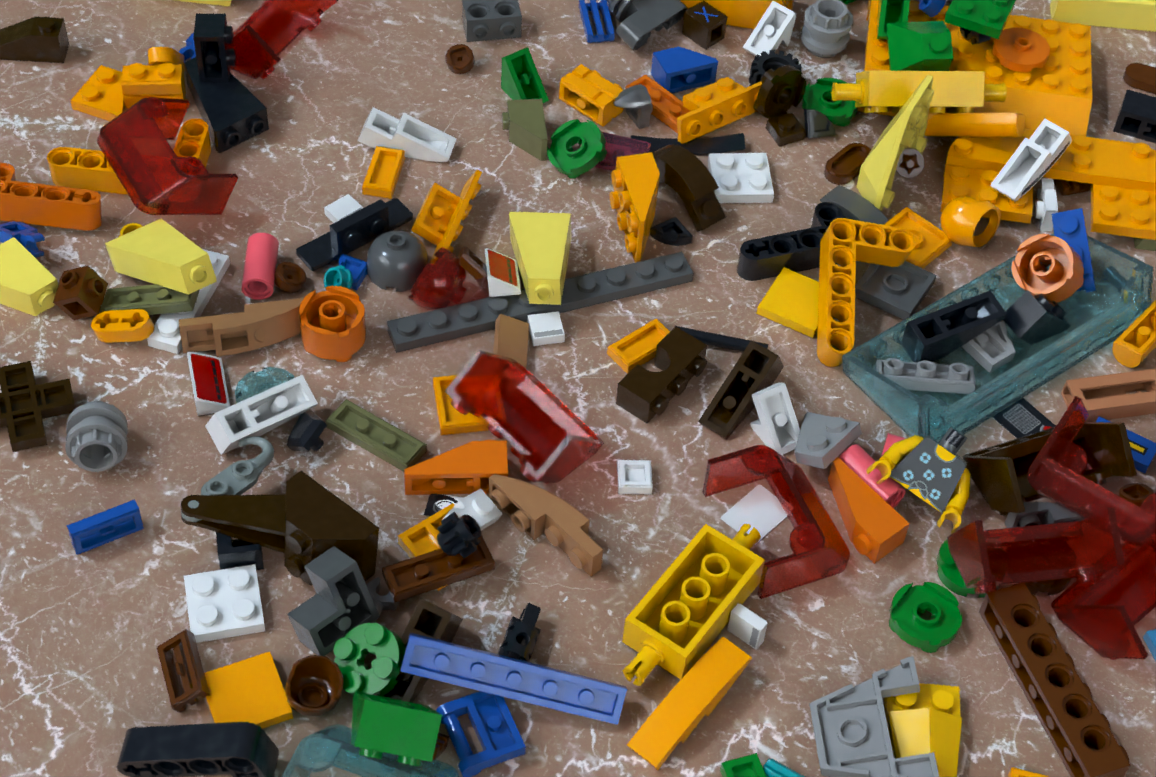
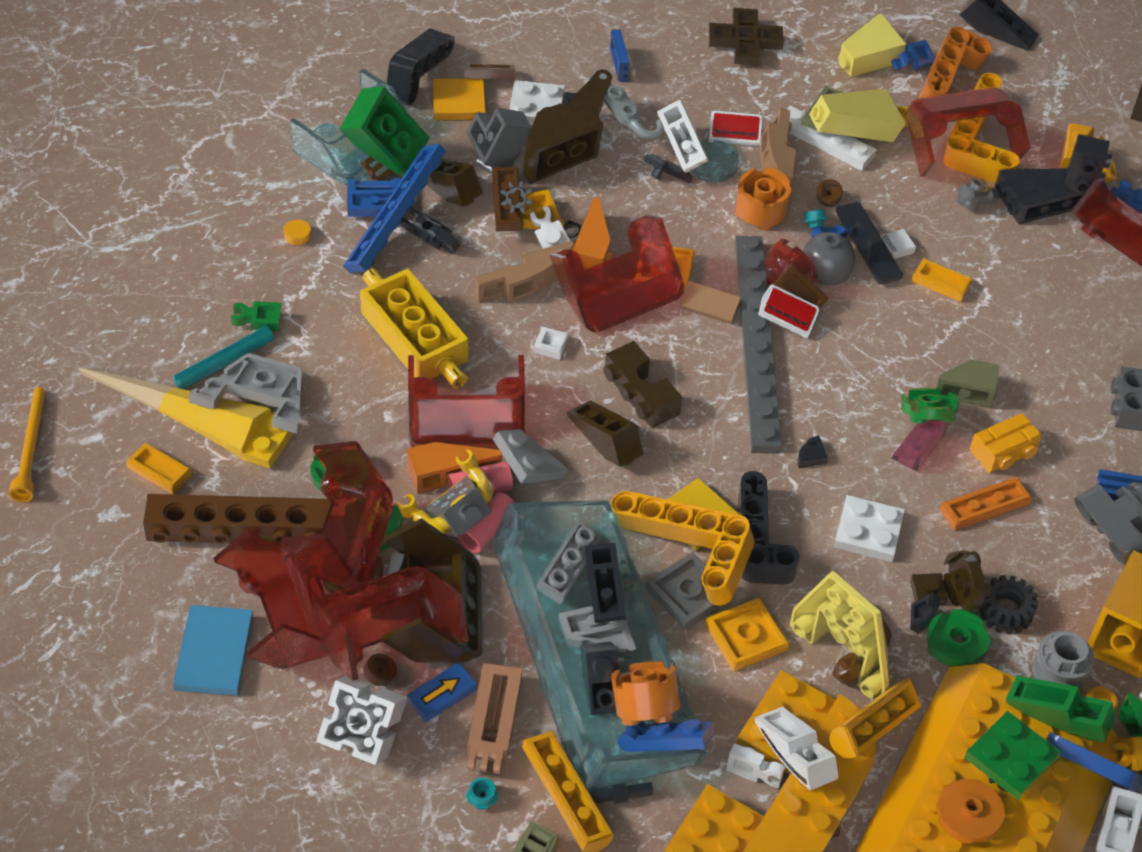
camera: 110 degrees right, 0 degrees up
(80, 292) = (842, 73): reddish brown brick -> none
(96, 436) = (697, 59): light grey piece -> none
(101, 94) = (1059, 129): light orange wing -> none
(122, 325) = (804, 94): light orange beam -> none
(245, 154) = (975, 191): none -> flat silver plate
(260, 266) = (849, 176): coral pin -> none
(314, 685) = (444, 123): reddish brown hair -> none
(352, 651) = (455, 147): green plate -> none
(376, 435) = (656, 204): olive tile -> none
(406, 134) = (978, 298): white slope -> none
(442, 212) = (872, 295): light orange bracket -> none
(460, 59) = (1081, 363): reddish brown tile -> none
(521, 78) = (1035, 395): green slope -> none
(542, 253) = (794, 336): light yellow slope -> none
(546, 328) = (724, 333): white tile -> none
(635, 199) = (839, 416): light orange slope -> none
(637, 104) = (980, 465): flat silver plate -> none
(637, 346) = (687, 385): light orange tile -> none
(682, 69) = (1029, 522): blue slope -> none
(689, 702) = (338, 303): light orange slope -> none
(692, 183) = (858, 458): dark brown arch -> none
(700, 145) = (927, 503): black sticker -> none
(704, 25) = (1097, 567): dark brown brick -> none
(715, 107) = (965, 526): light orange bracket -> none
(720, 340) = (671, 443): black bar -> none
(747, 626) = (381, 356): white tile -> none
(772, 30) = (1068, 614): white slope -> none
(777, 419) = (565, 437): white slope -> none
(854, 205) = (787, 594): dark grey slope -> none
(891, 89) = (923, 682): yellow brick -> none
(919, 46) = (981, 701): green slope -> none
(961, 218) = (745, 673): light orange helmet -> none
(1022, 419) = (501, 635): black sticker -> none

